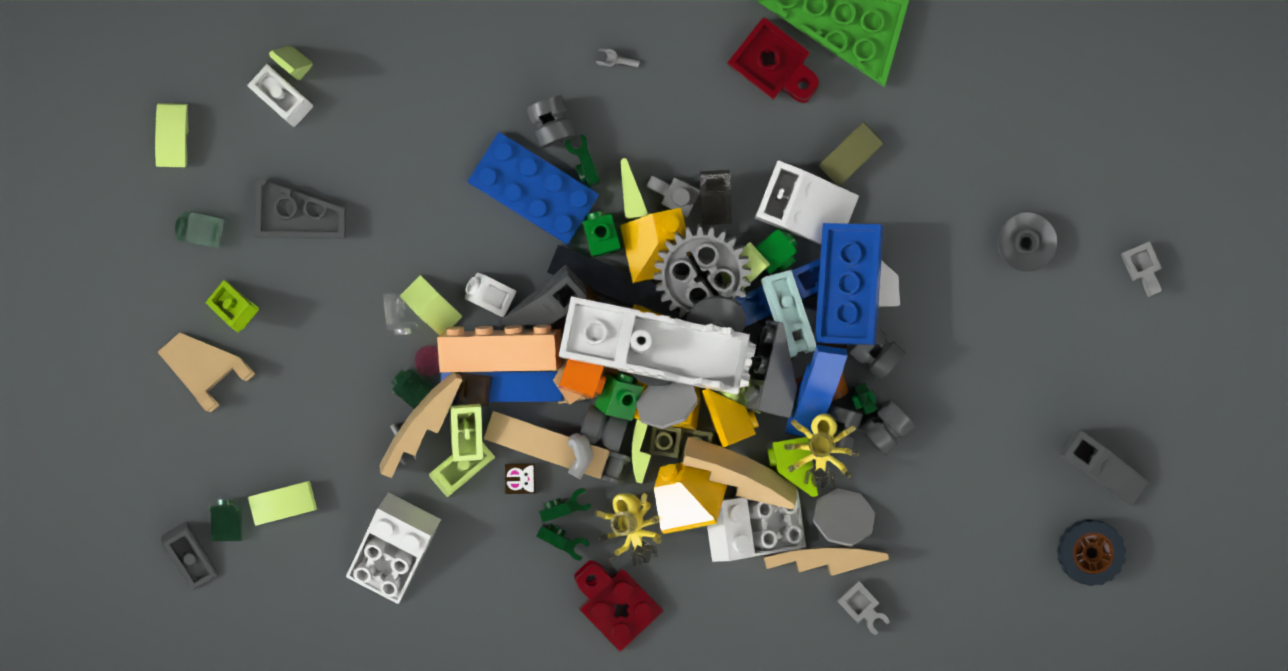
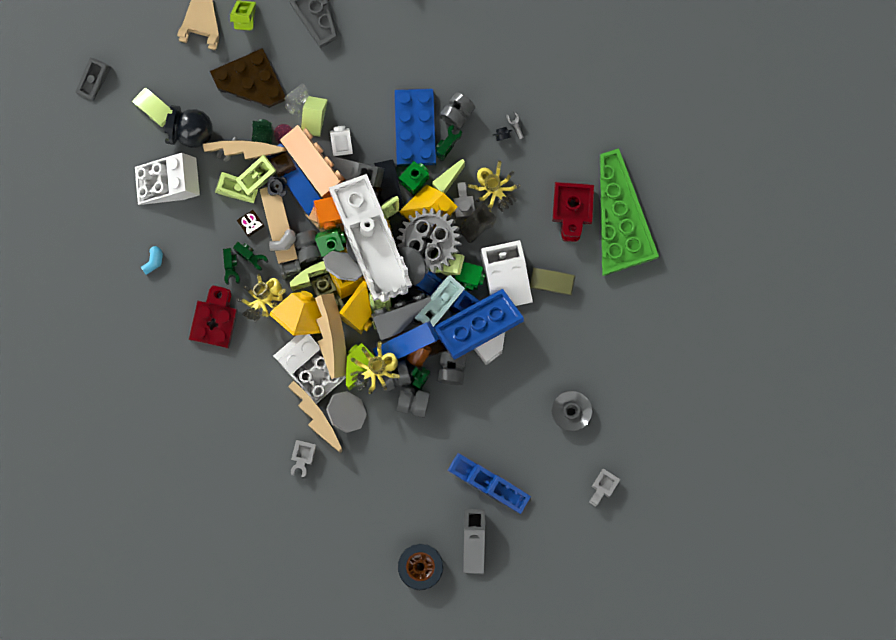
camera: 55 degrees right, 10 degrees down
(226, 521) = (124, 85): clear green bracket -> none
(326, 355) = (250, 79): none -> dark brown plate
(345, 476) = (189, 127): none -> black tile
(489, 629) = (155, 260): none -> medium azure arm
(502, 422) = (273, 181): none -> black plate
(619, 84) = (502, 133): none -> black plate
(620, 292) = (390, 207): none -> yellowish green slope
(678, 142) = (492, 185): none -> animal
(1046, 402) = (489, 483): none -> blue slope

